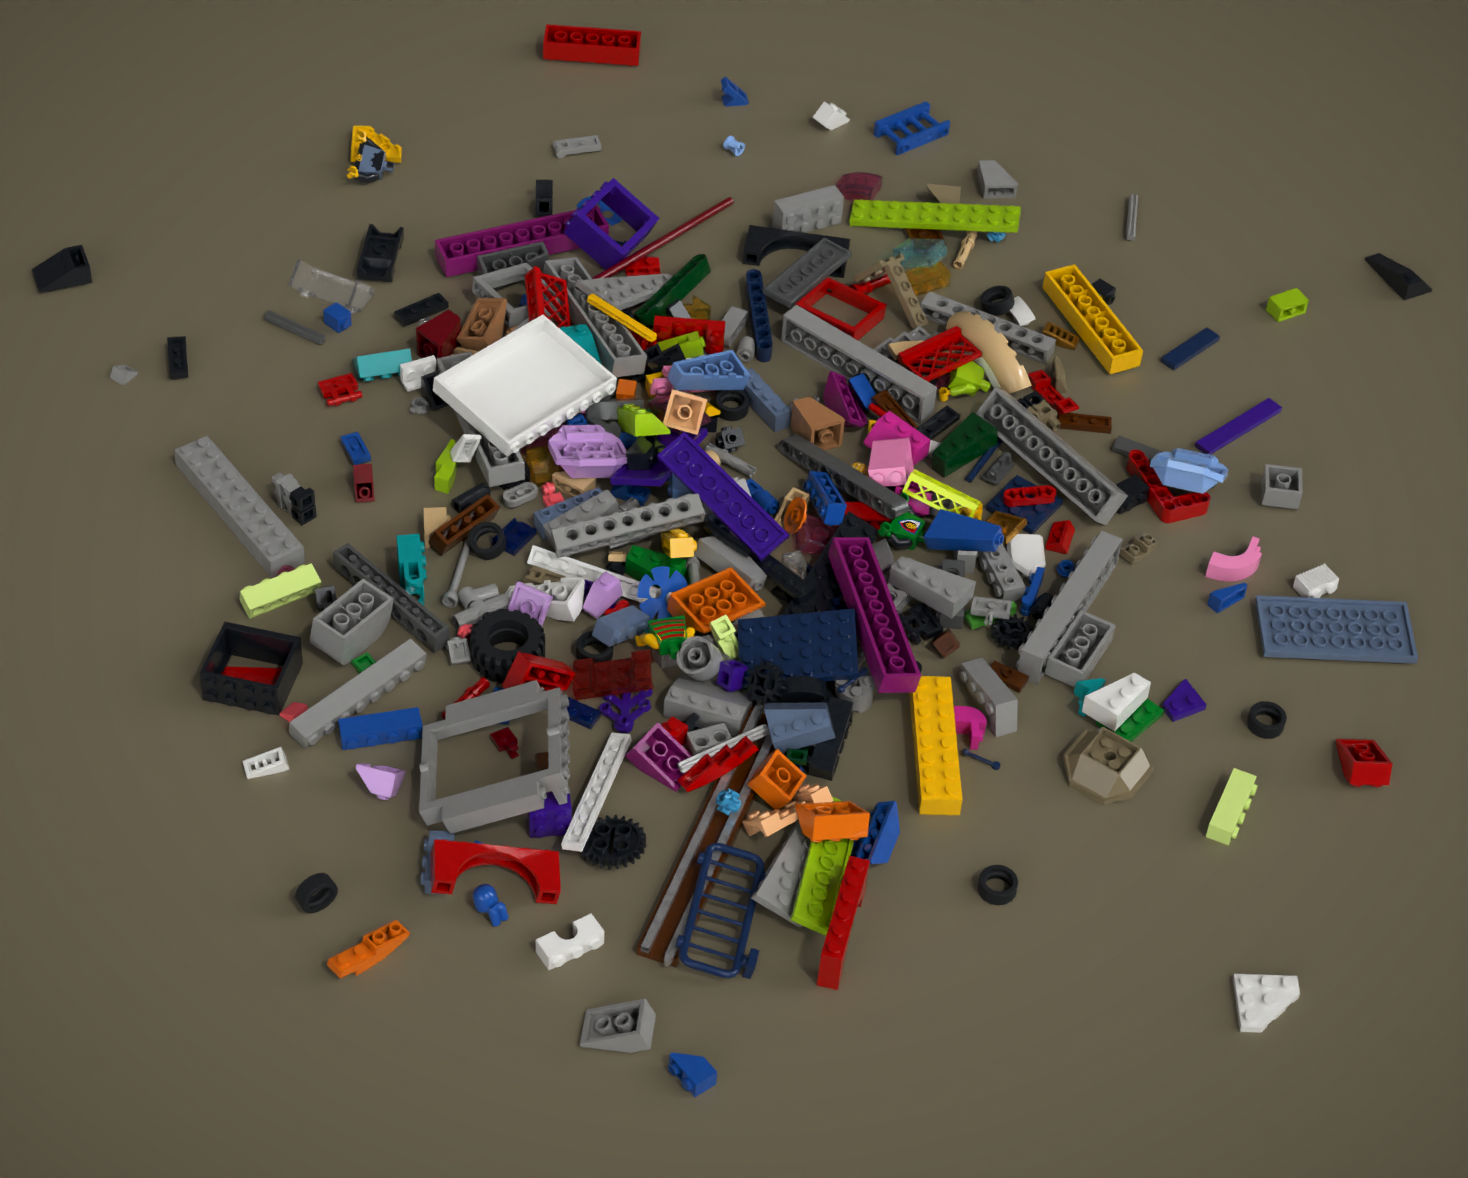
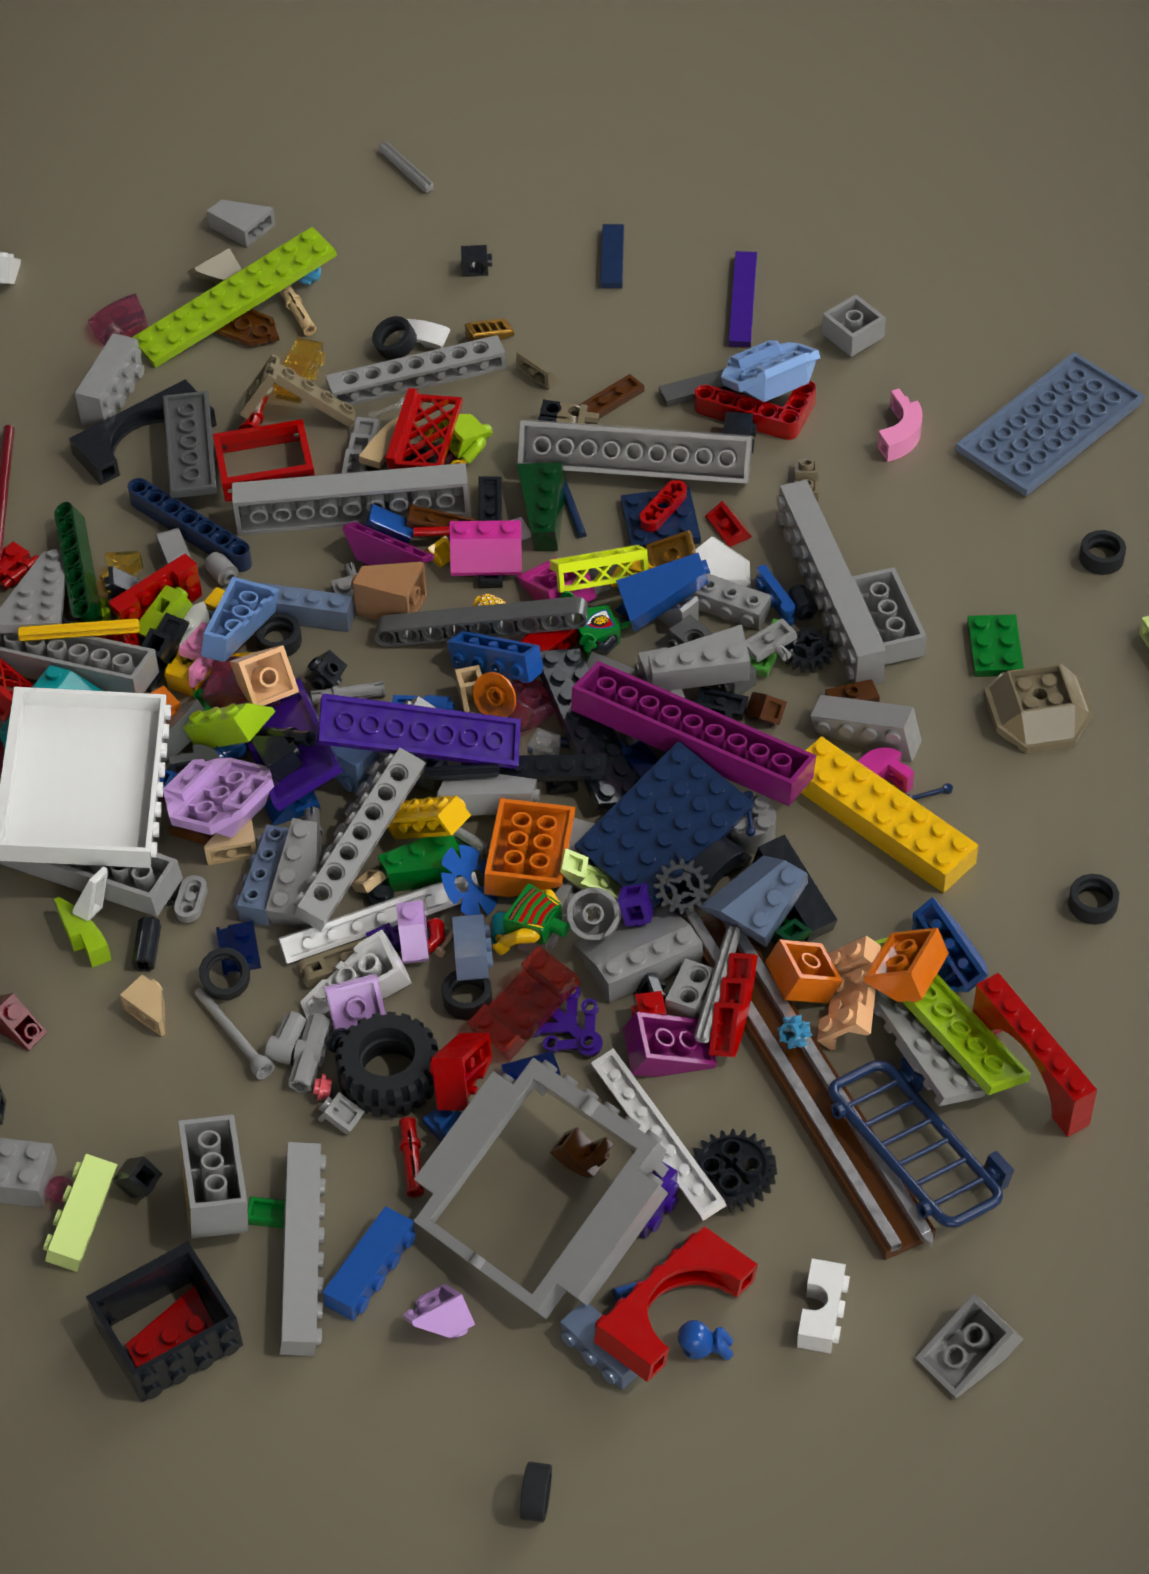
camera: 40 degrees left, 5 degrees up
(267, 769) = (296, 1394): white slope -> none
(293, 711) = (256, 1327): coral slope -> none
(370, 951) = (655, 1499): orange slope -> none
(405, 608) = (160, 1116): dark grey brick -> none
(411, 564) = (190, 1069): teal brick -> none
(461, 525) = (181, 977): reddish brown brick -> none
(505, 740) = (501, 1162): dark red plate -> none
(541, 465) = (186, 849): clear yellow brick -> none
(550, 496) = (228, 879): coral plate -> none
(693, 1072) = (1084, 1323): blue slope -> none
(891, 461) = (513, 571): bright pink slope -> none
(907, 117) = (80, 215): blue fence -> none
(921, 252) = (275, 337): clear light blue window -> none
(997, 357) = (483, 392): tan brick -> none
(999, 469) = (597, 502): dark grey hinge -> none
(1042, 385) = (529, 390): red slope -> none
(1065, 567) = (773, 550): blue plate -> none
(1086, 687) = (941, 650): teal slope -> none
(1092, 319) = (501, 291): yellow brick -> none
(1117, 700) = (983, 638): white wedge -> none
(1183, 702) = (1018, 593): dark purple wing -> none
(1225, 597) = (932, 471): blue slope -> none
(1287, 304) = (642, 151): lime brick -> none
(1316, 582) = (985, 393): white brick -> none
(1400, 278) = (703, 57): black wedge -> none

